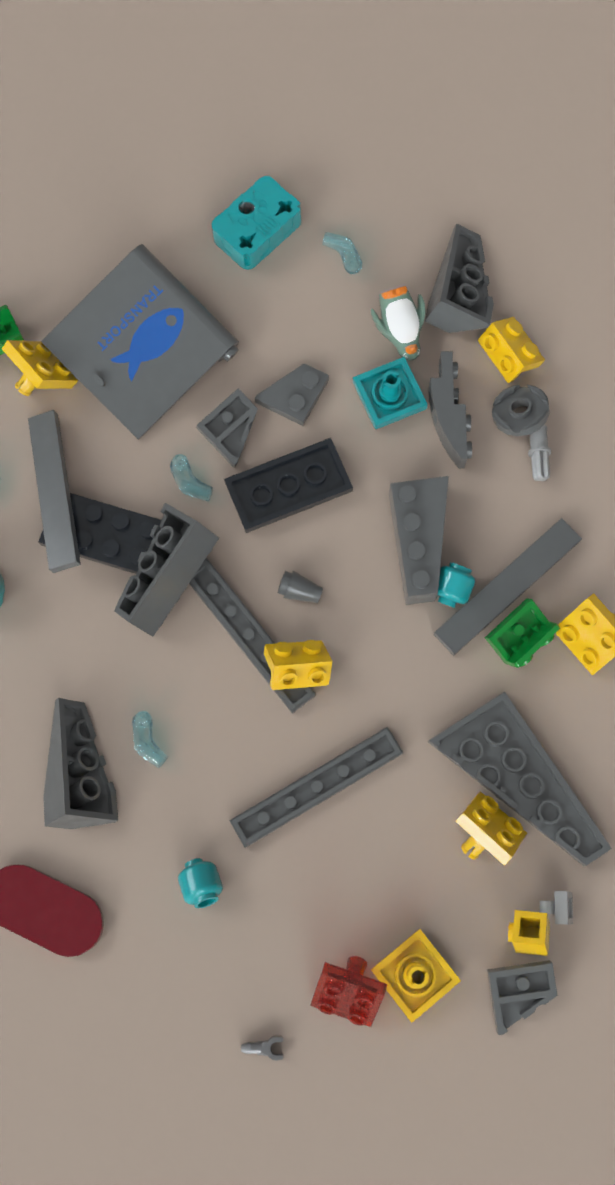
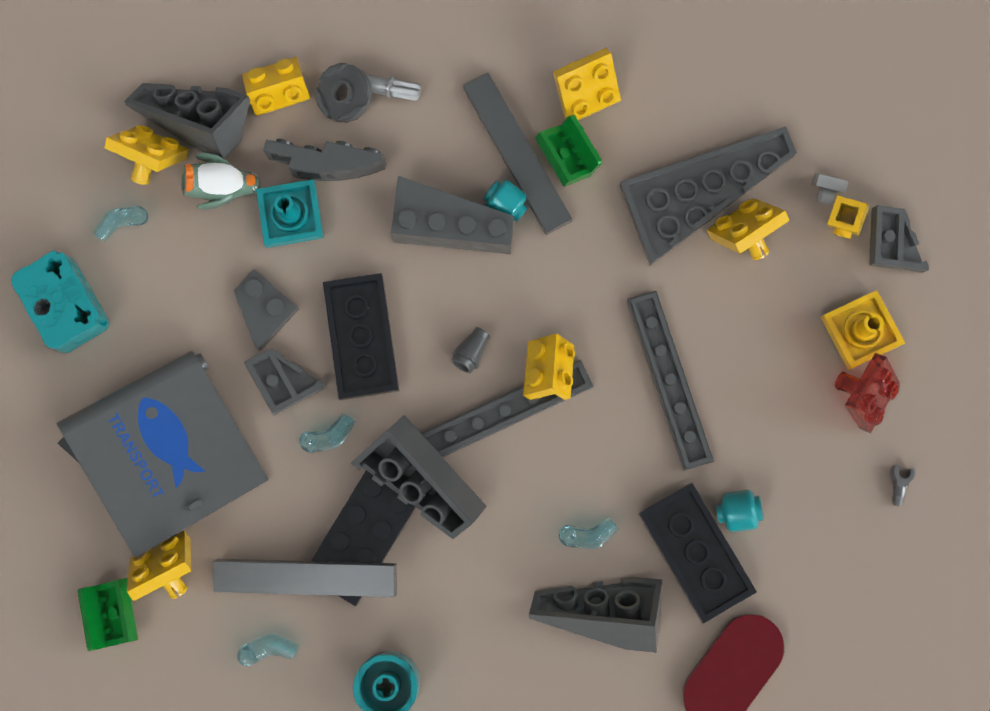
camera: 75 degrees left, 5 degrees up
(150, 849) = (697, 553): none -> black plate
(413, 253) = (146, 150): none -> yellow plate

